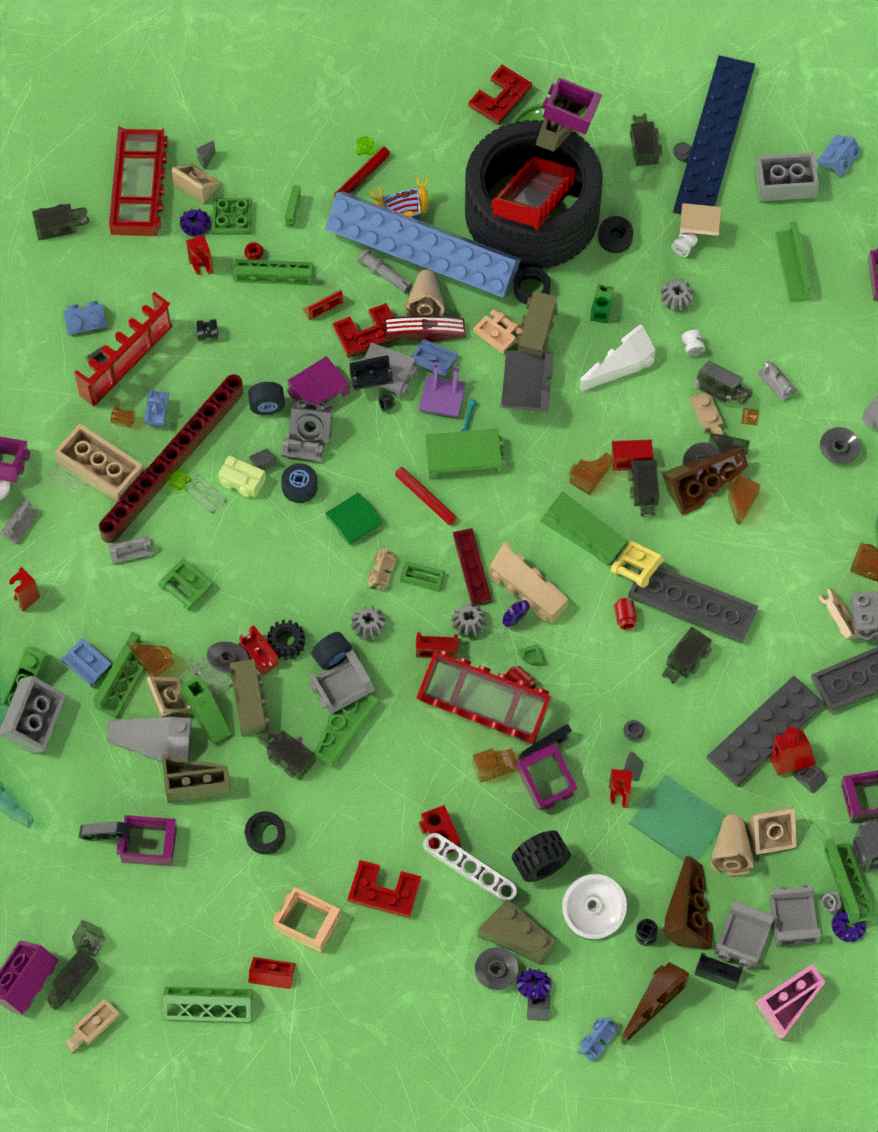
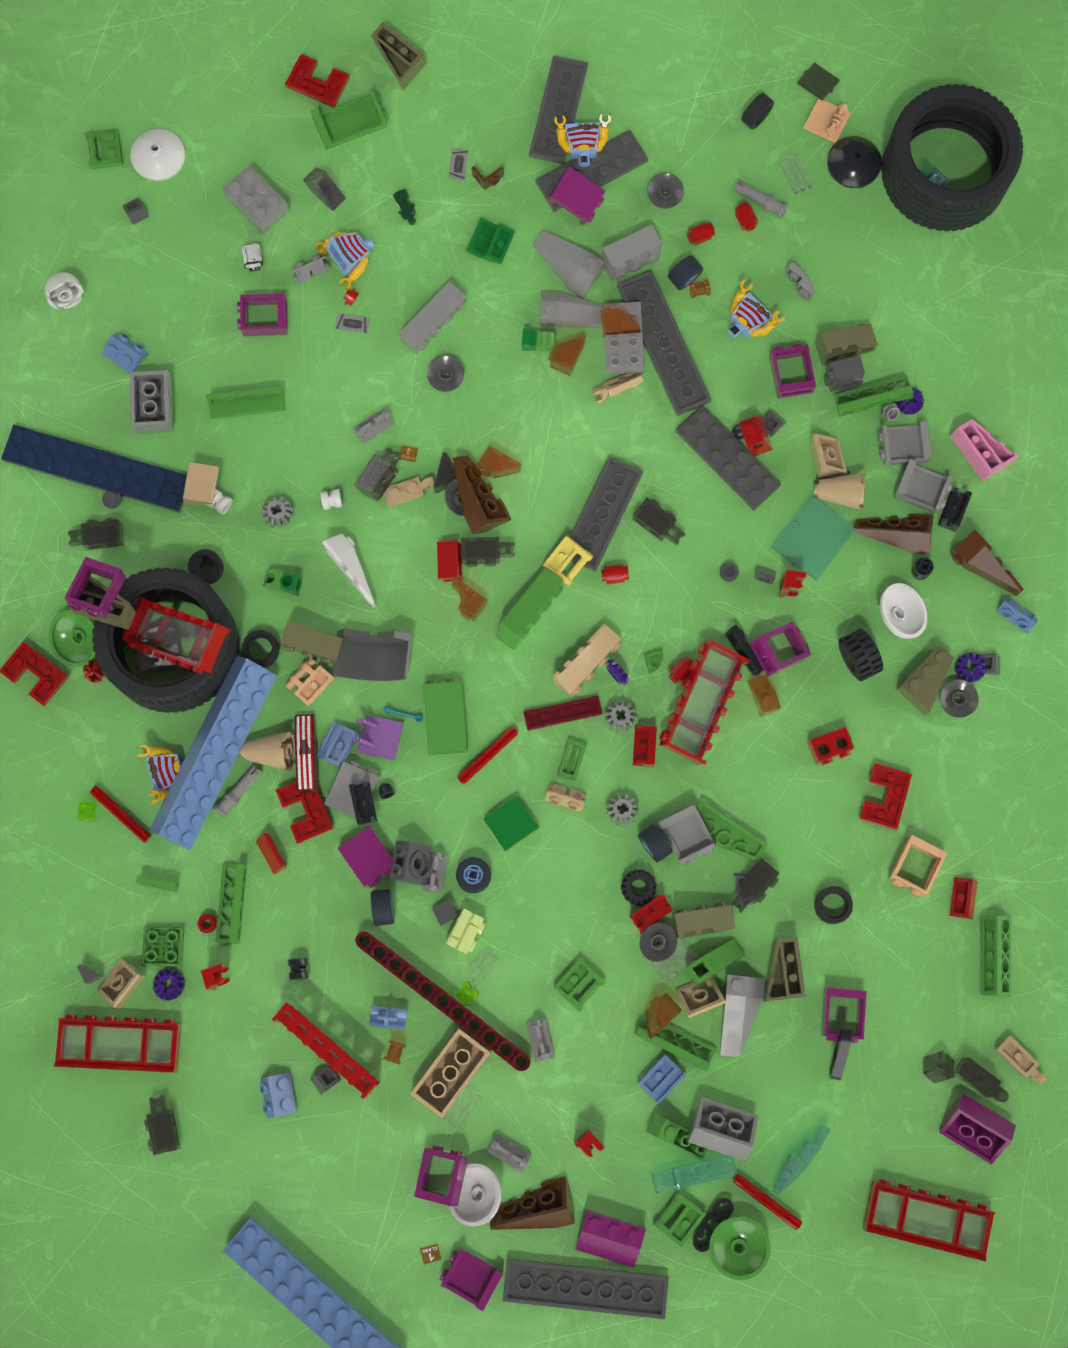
camera: 90 degrees left, 15 degrees up
(480, 868) = (864, 723): white beam -> none

